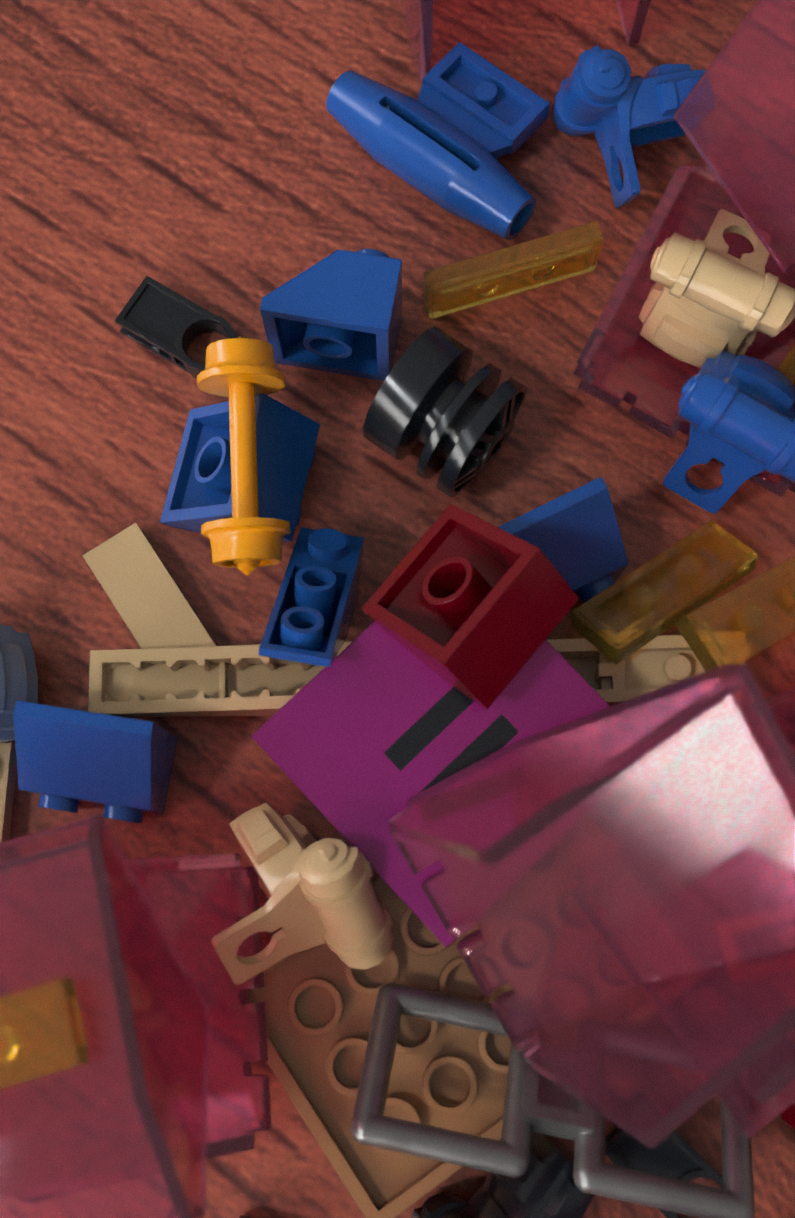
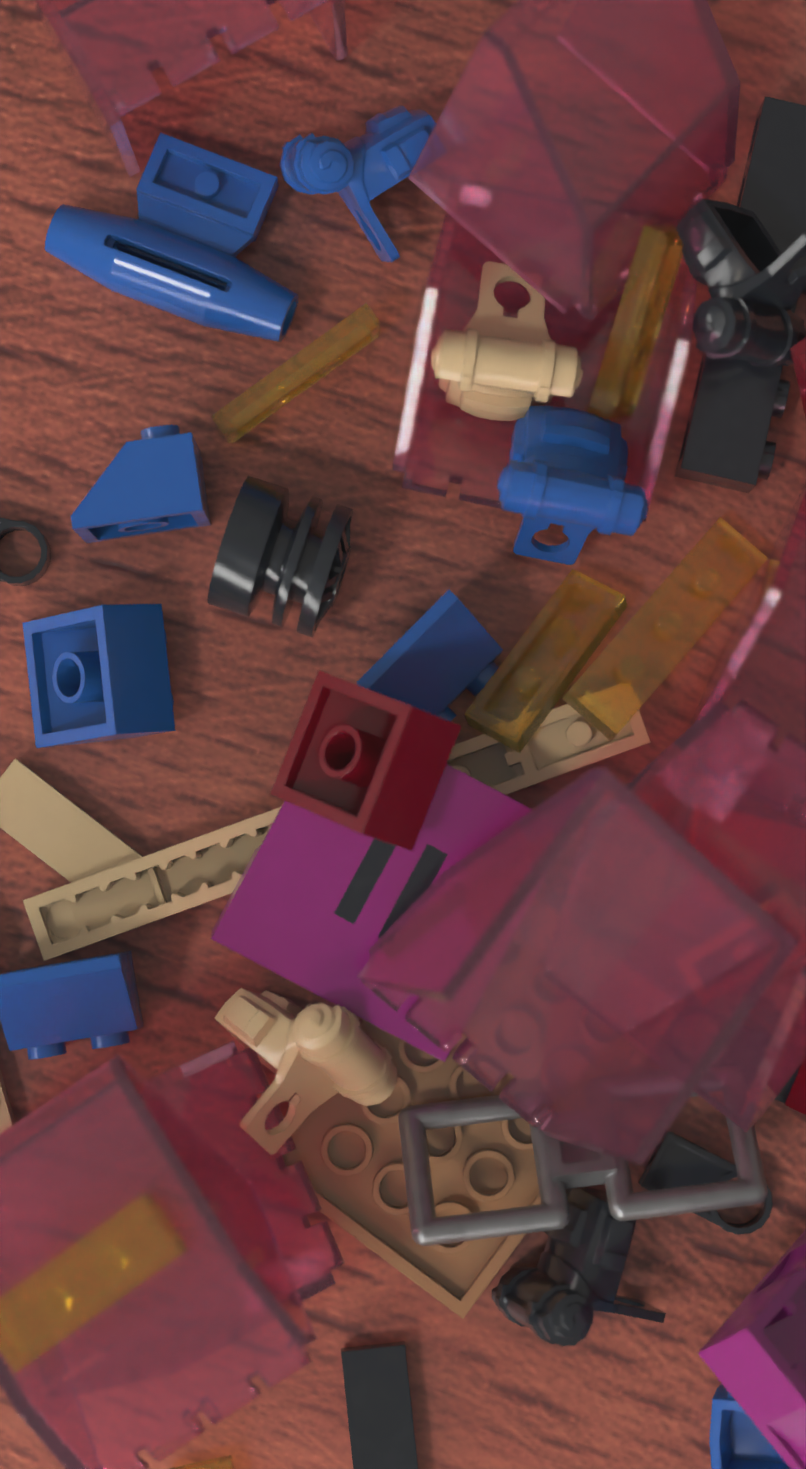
camera: 20 degrees left, 10 degrees up
(240, 371) = (138, 755): light orange piece -> none
(315, 598) = (222, 788): blue slope -> none

